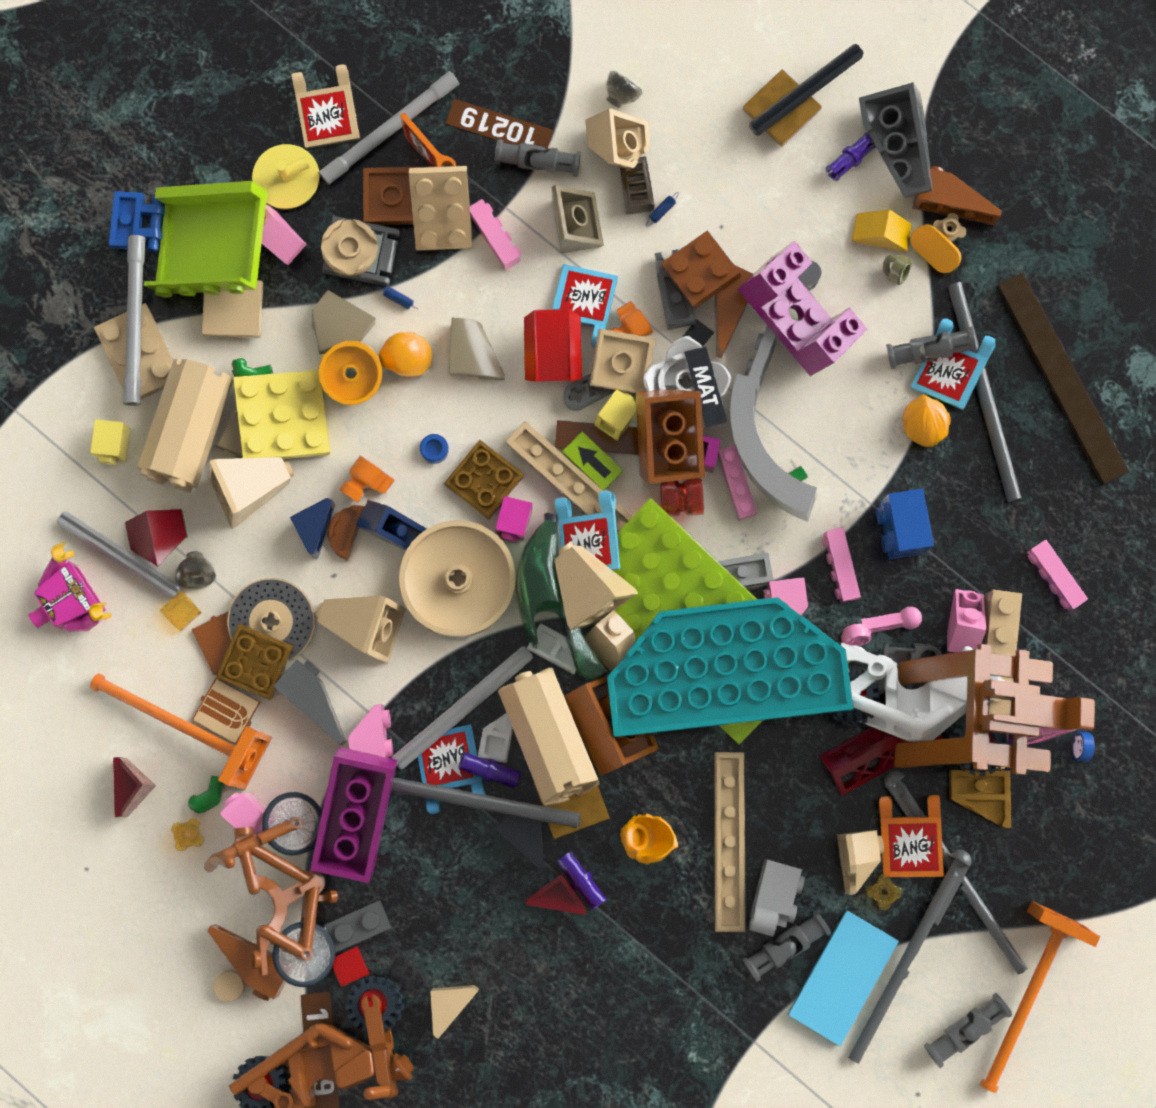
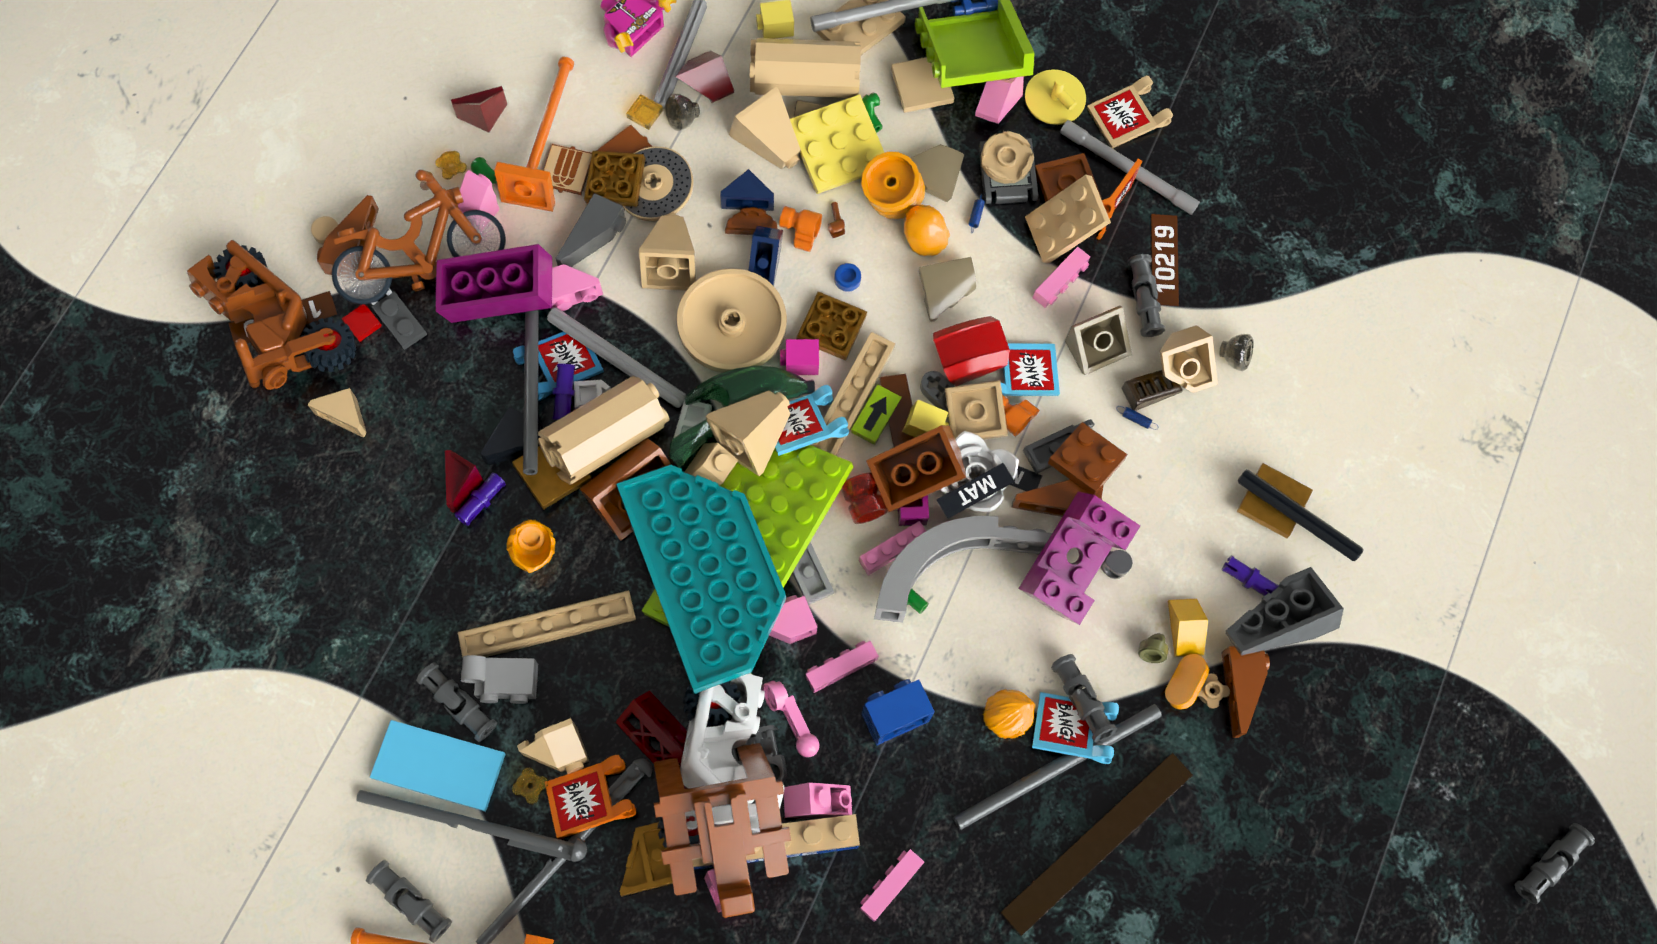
camera: 70 degrees right, 10 degrees down
(375, 442) = (837, 227): none -> dark orange hand

